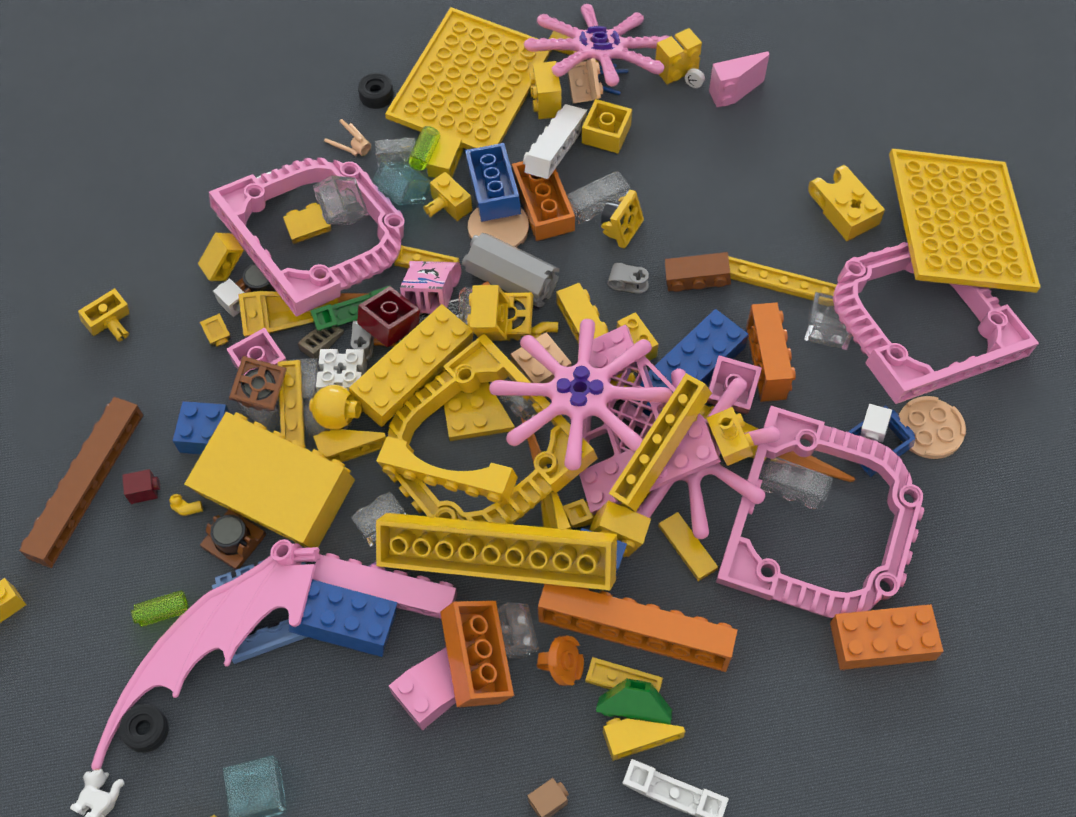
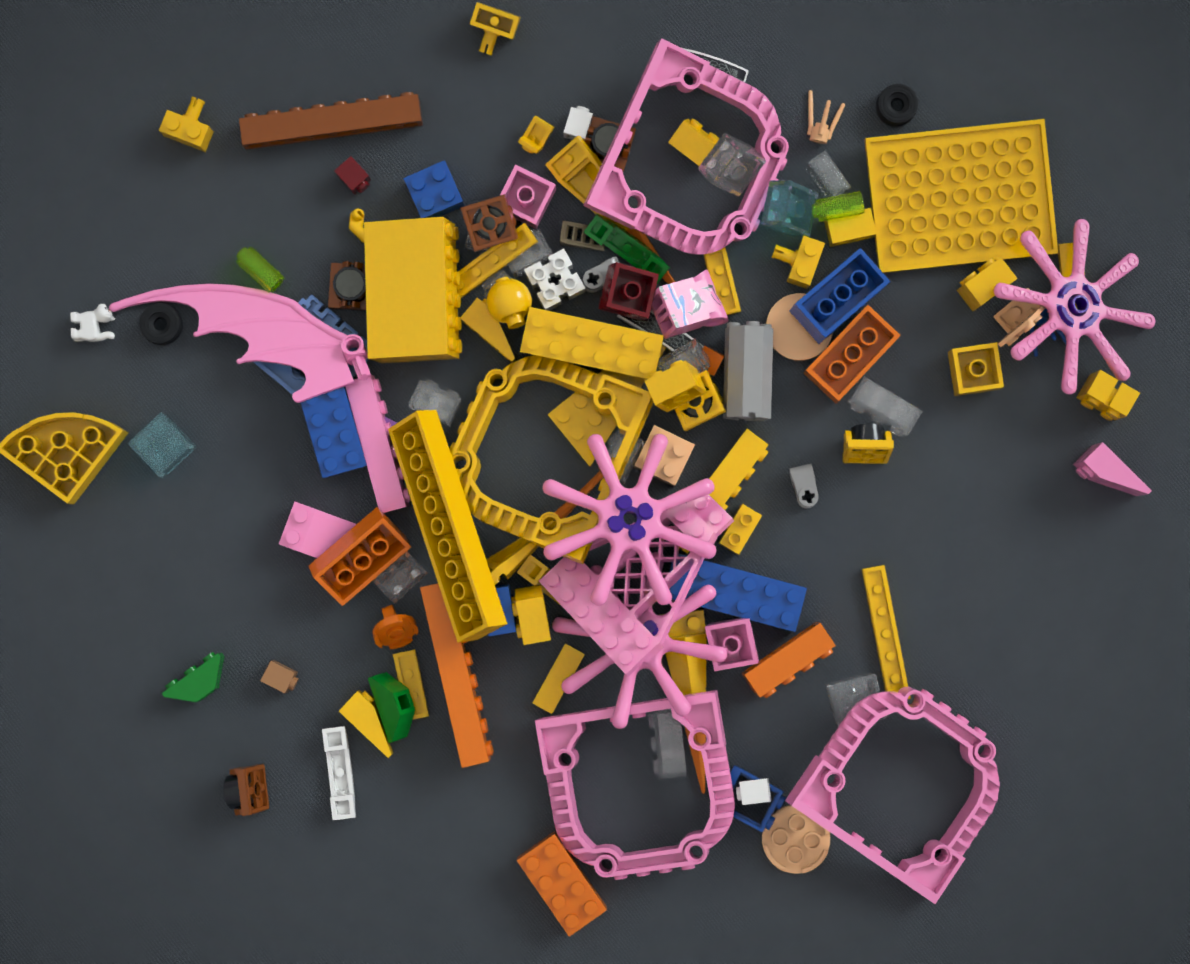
camera: 55 degrees right, 25 degrees up
(220, 256) = (610, 88): yellow brick -> none
(492, 482) = (491, 391): yellow arch -> none
(542, 327) = (706, 433): yellow arm -> none
(554, 141) = (917, 333): white brick -> none
(660, 442) = (612, 617): yellow brick -> none
(694, 78) = (1094, 424): white tile -> none
(697, 272) = (845, 549): dark orange brick -> none
(729, 435) = (658, 672): yellow brick -> none
(847, 203) = (1010, 646): yellow brick -> none
(962, 221) = (1044, 776): yellow plate -> none

